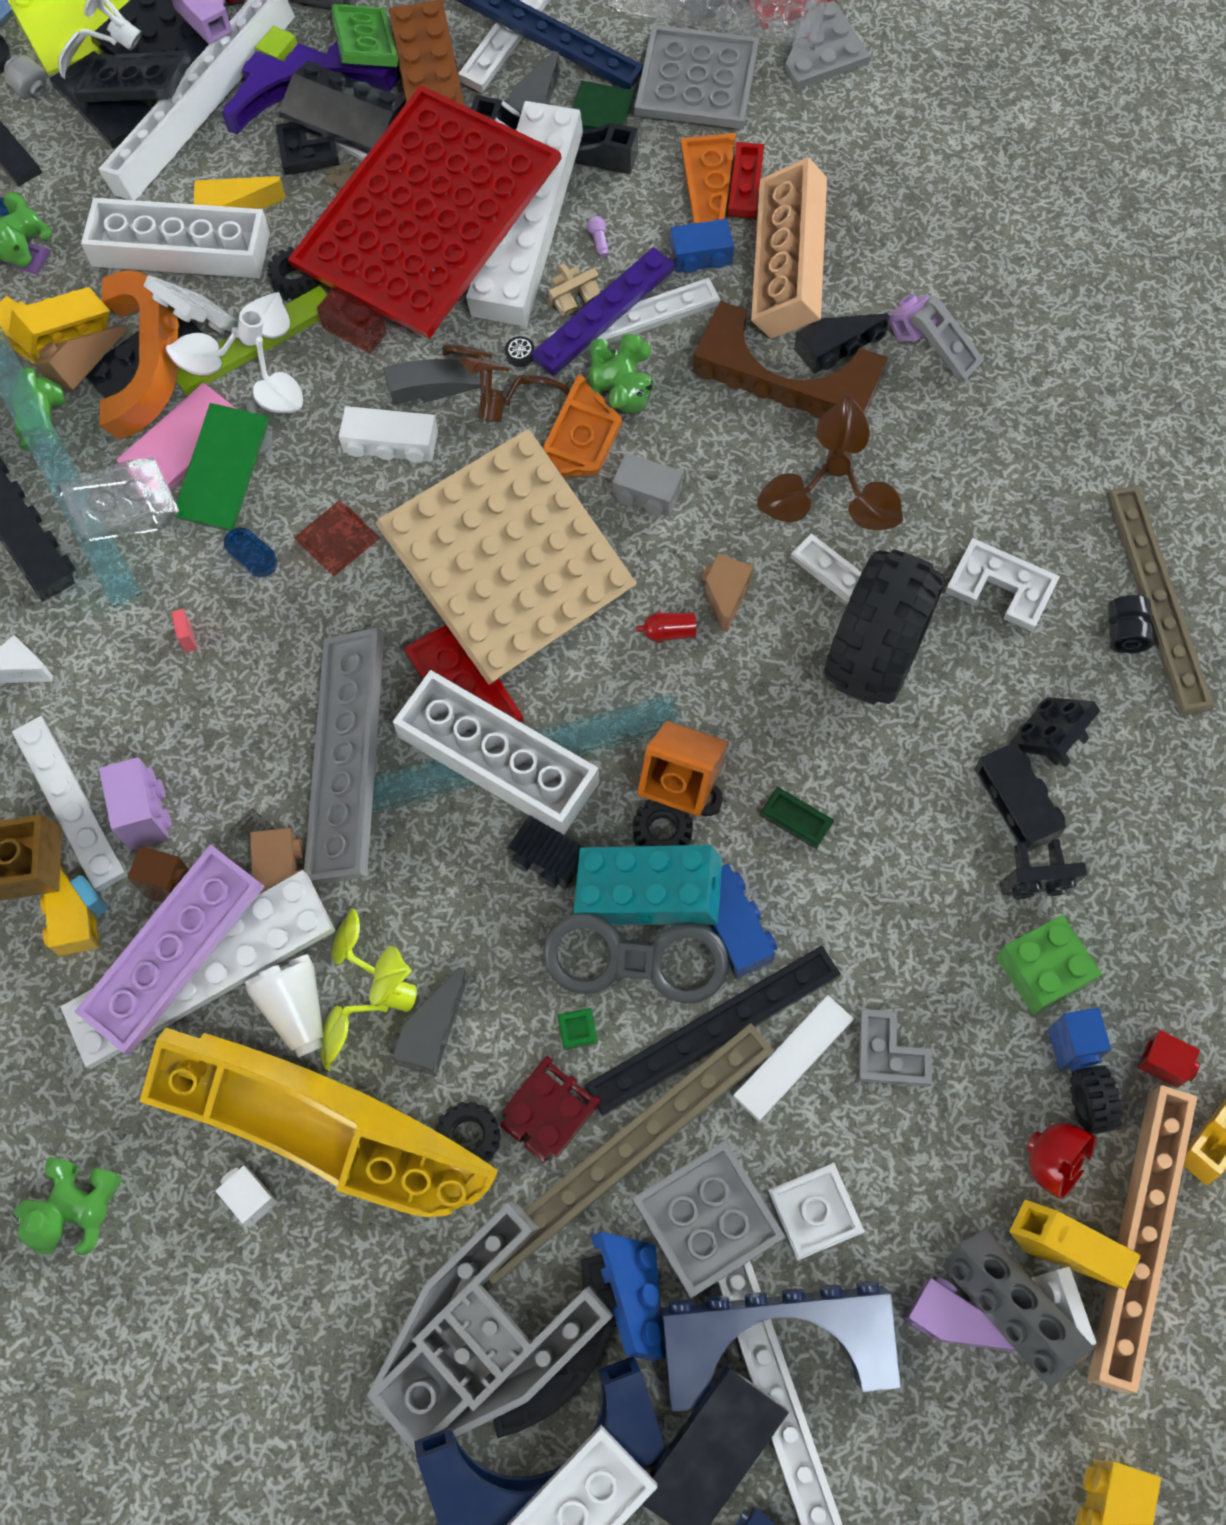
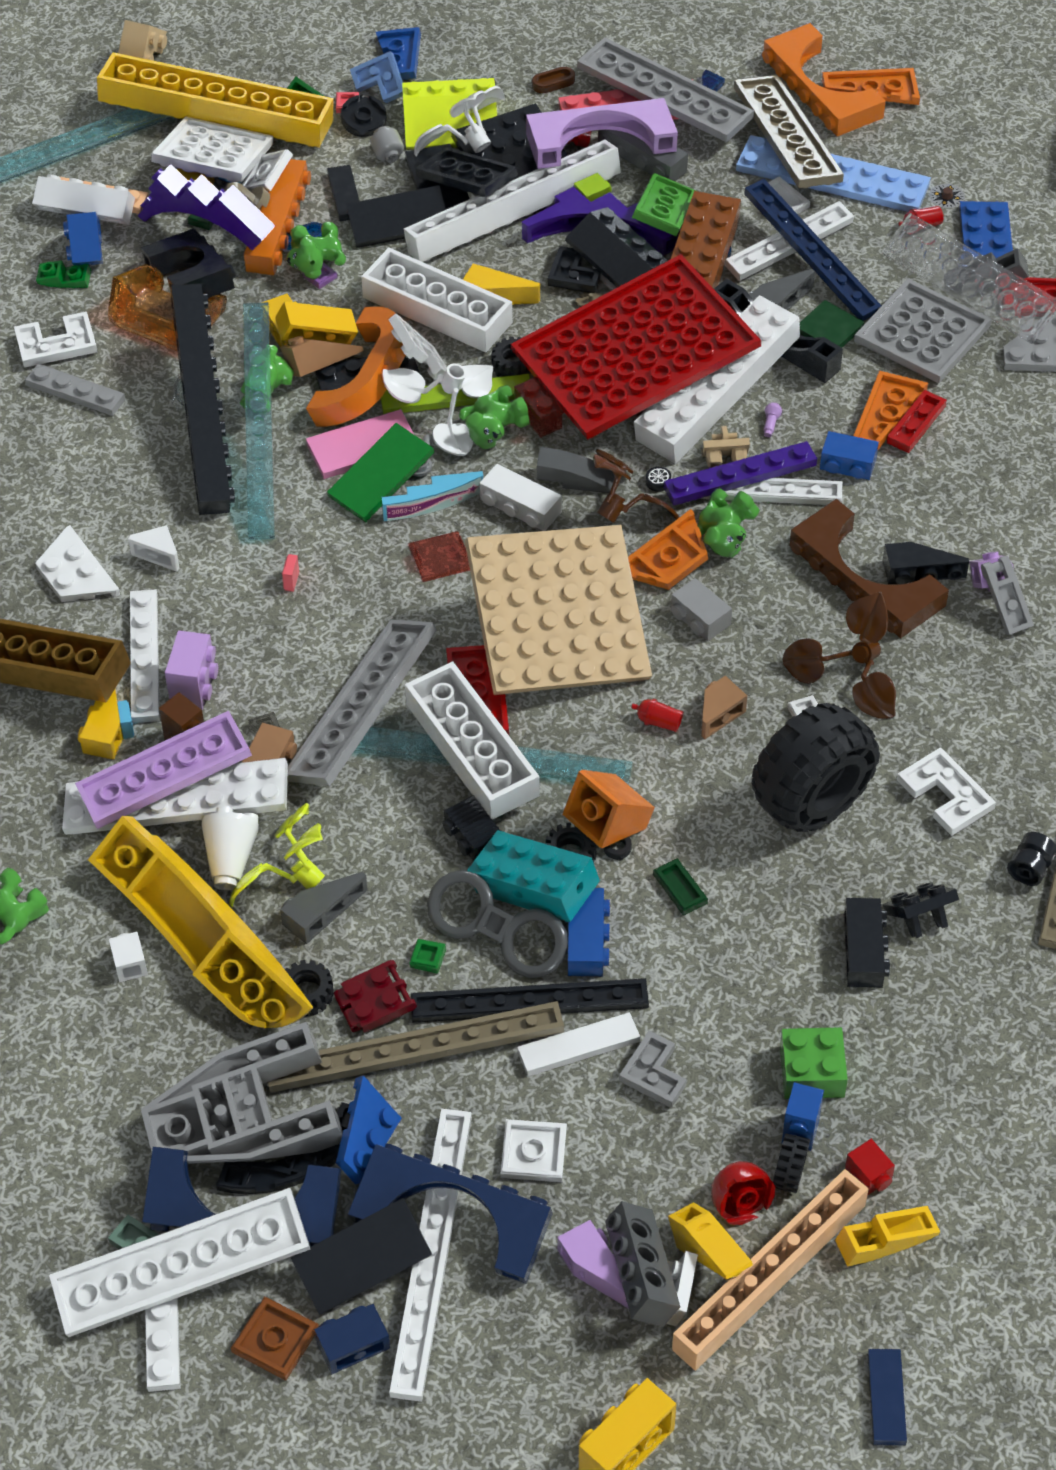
camera: 25 degrees right, 15 degrees down
(73, 159) = (386, 217): none -> black tile
(119, 500) = (292, 463): clear slope -> none
(250, 552) = (370, 540): clear blue tile -> none
(300, 465) = (424, 499): none -> slope
(309, 350) = (491, 414): none -> bright green animal
(708, 1219) = (448, 1109): light grey plate -> none
(789, 249) = (916, 481): light nougat brick -> none
(1053, 878) = (843, 998): black plate -> none

